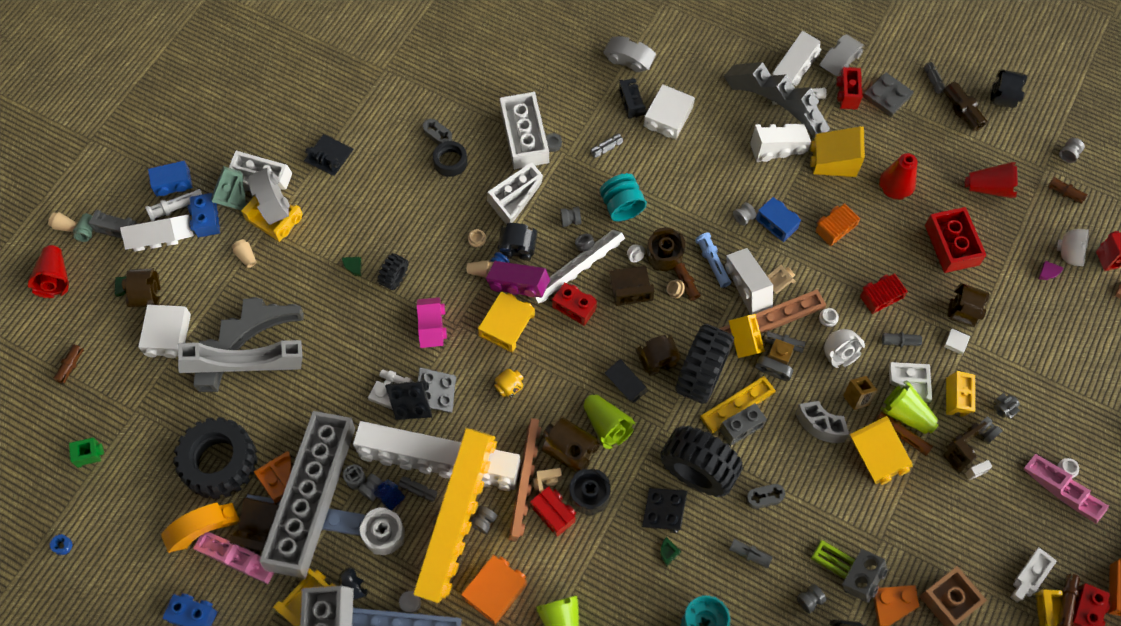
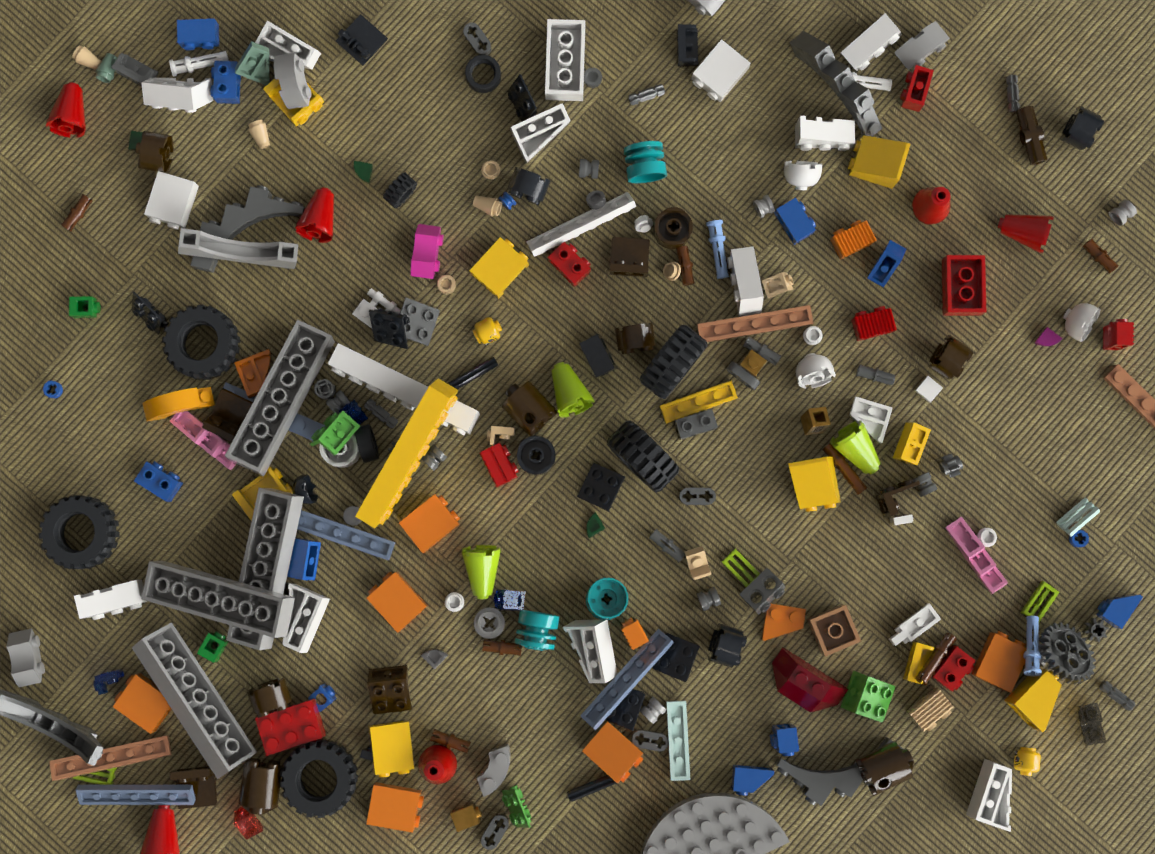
camera: 15 degrees right, 20 degrees up
(154, 442) = (144, 308): none -> black hinge
(316, 315) = (318, 217): none -> red cone
(374, 511) = (335, 433): none -> bright green bracket
(409, 519) = (367, 443): none -> black tyre
(457, 350) = (446, 284): none -> tan tile
(491, 168) = (522, 99): none -> black hinge
(508, 424) = (473, 373): none -> black axle
(518, 279) = (519, 228): magenta brick -> none
(523, 488) = (483, 421): nougat plate -> none
(746, 336) = (725, 338): yellow hinge -> none
(771, 177) = (802, 173): none -> white cylinder
(787, 562) = (697, 563): none -> tan bracket
(821, 423) = (769, 442): light grey brick -> none
(876, 238) = (887, 263): none -> blue slope
(888, 94) = (957, 101): dark grey plate -> none

